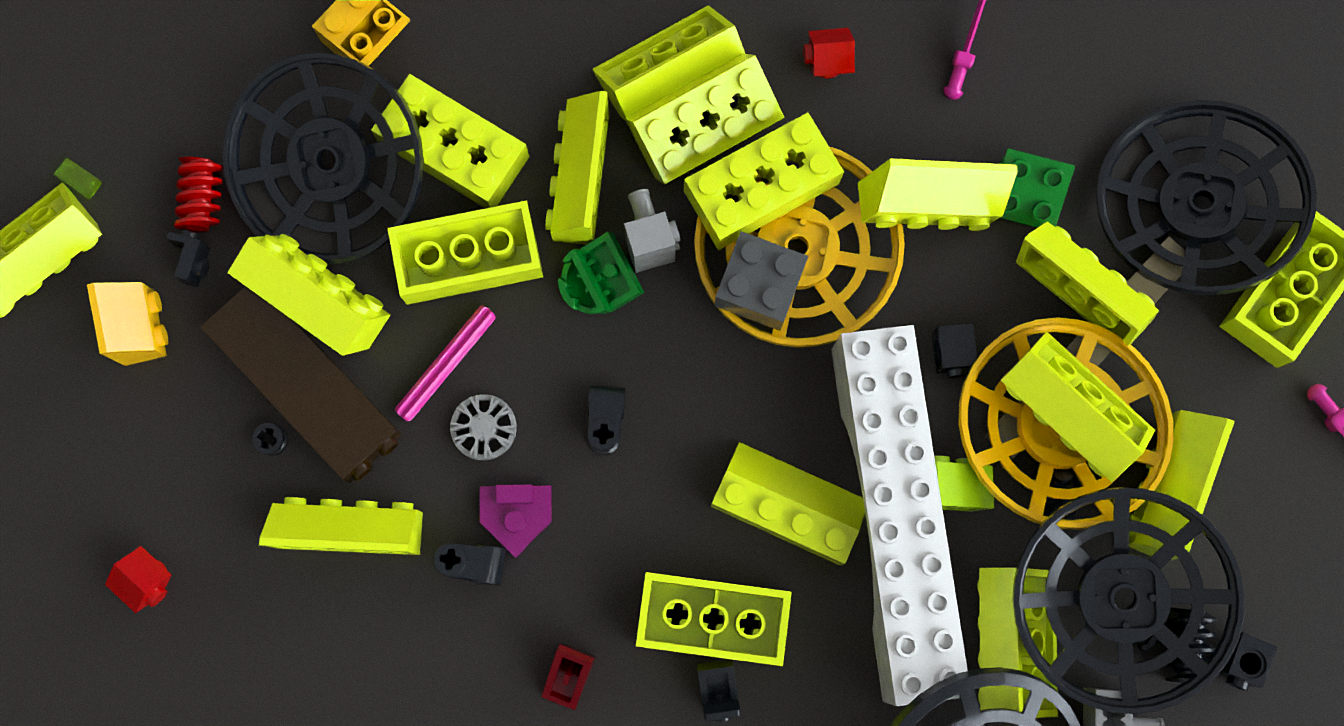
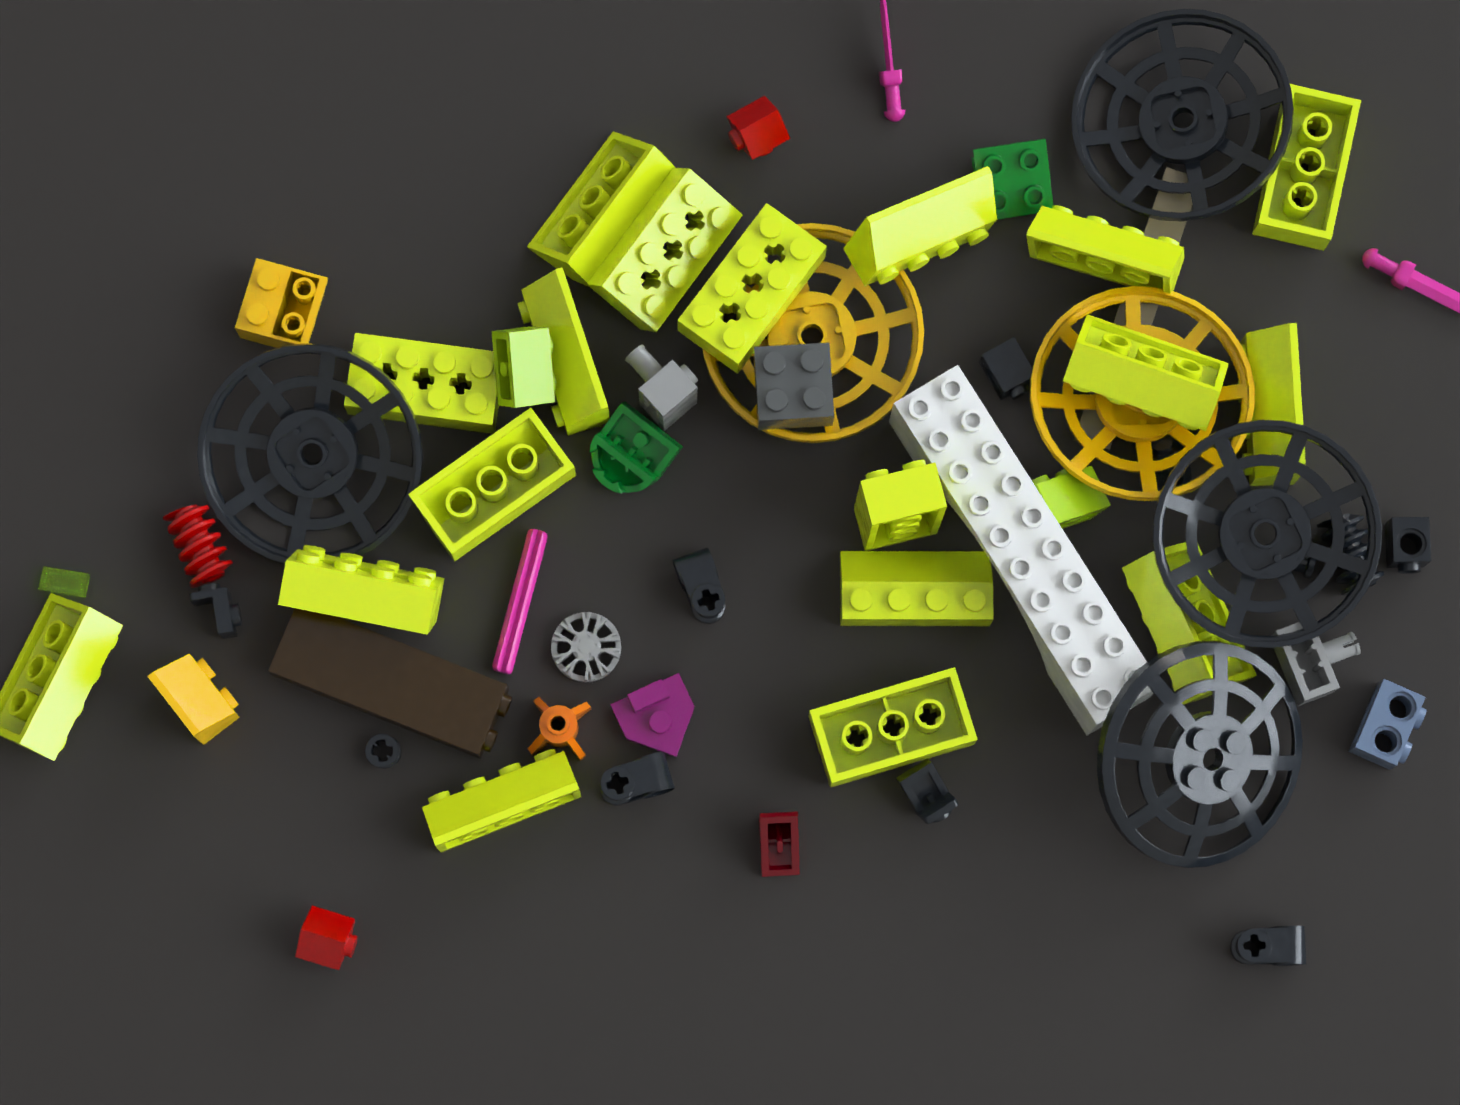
camera: 25 degrees left, 0 degrees up
(432, 493) = (560, 738): none -> orange brick
(536, 163) = (523, 366): none -> brick
(807, 425) = (899, 505): none -> neon yellow brick

